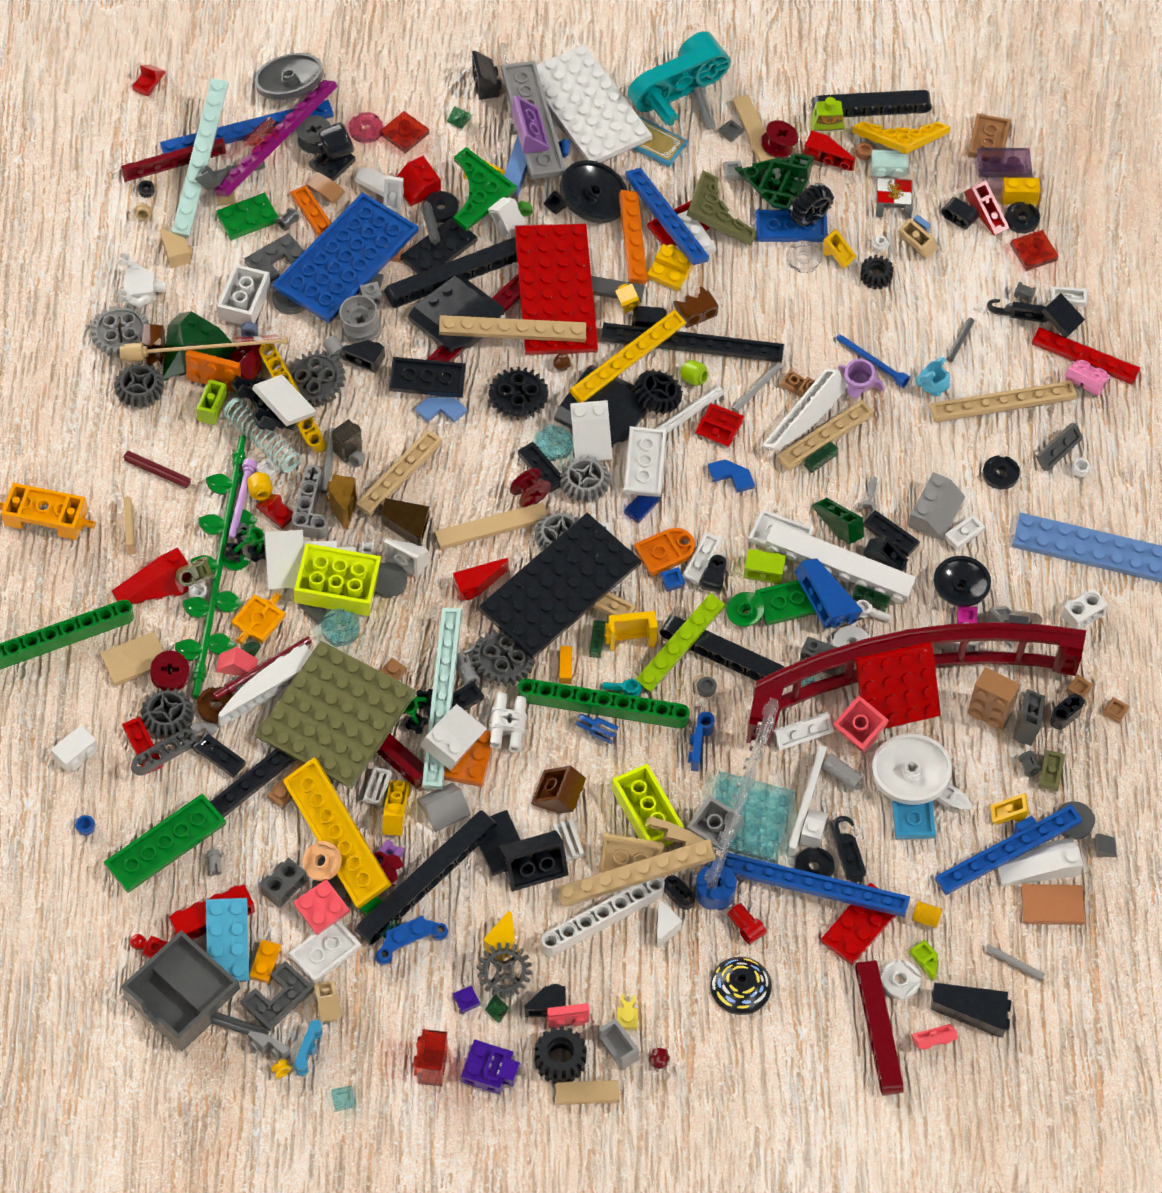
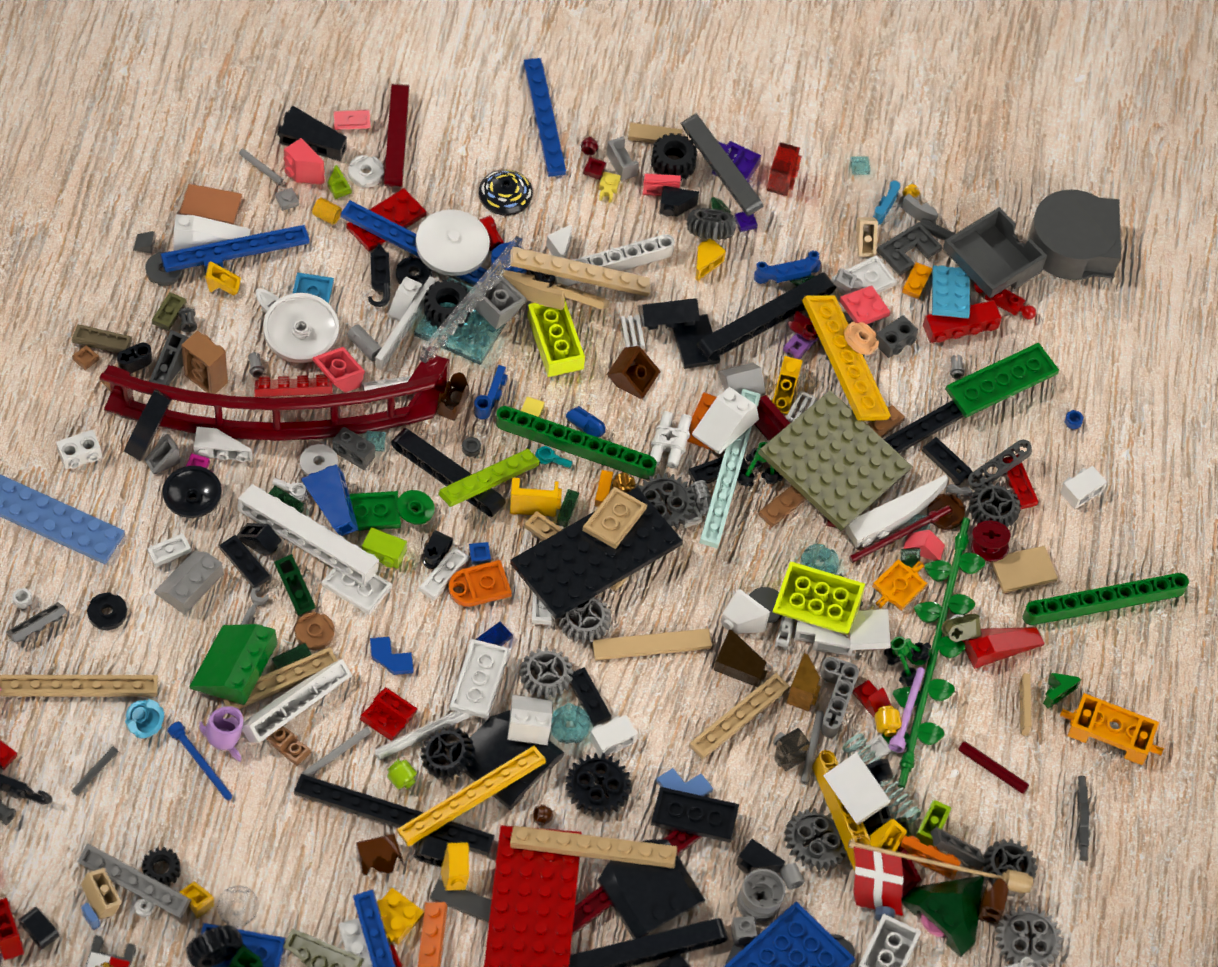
camera: 175 degrees left, 0 degrees up
(72, 432) = (1083, 813): none -> dark grey piece
(86, 1038) = (1078, 234): none -> dark grey brick
(92, 547) = (1062, 686): none -> green slope
(188, 380) = (957, 847): none -> dark grey plate
(254, 365) = (888, 836): none -> yellow slope
(346, 931) = (845, 280): none -> light grey plate
(475, 580) = (679, 584): red slope -> none
(504, 1041) = (722, 164): none -> dark grey beam
(512, 435) = (613, 735): none -> white brick
(529, 487) = (606, 662): dark red piece -> none
(546, 667) = (623, 482): none -> pearl gold gear
(548, 611) = (614, 517): none -> tan tile
(647, 1029) = (594, 168): none -> dark red plate
(654, 737) = (533, 406): none -> light yellow tile
(719, 1092) = (544, 117): none -> blue plate
(736, 711) = (460, 384): none -> reddish brown piece
(773, 799) = (440, 293): none -> black tyre
(781, 890) = (452, 242): none -> white dish
(807, 486) = (314, 630): none -> medium nougat tile
(870, 436) = (235, 662): none -> green slope
(896, 252) = (135, 881): none -> light grey plate
(945, 729) = (256, 368): none -> light grey pin
(968, 957) = (303, 163): none -> coral slope
(974, 927) = (287, 199): none -> light grey plate
(1107, 728) = (101, 339): none -> dark tan plate

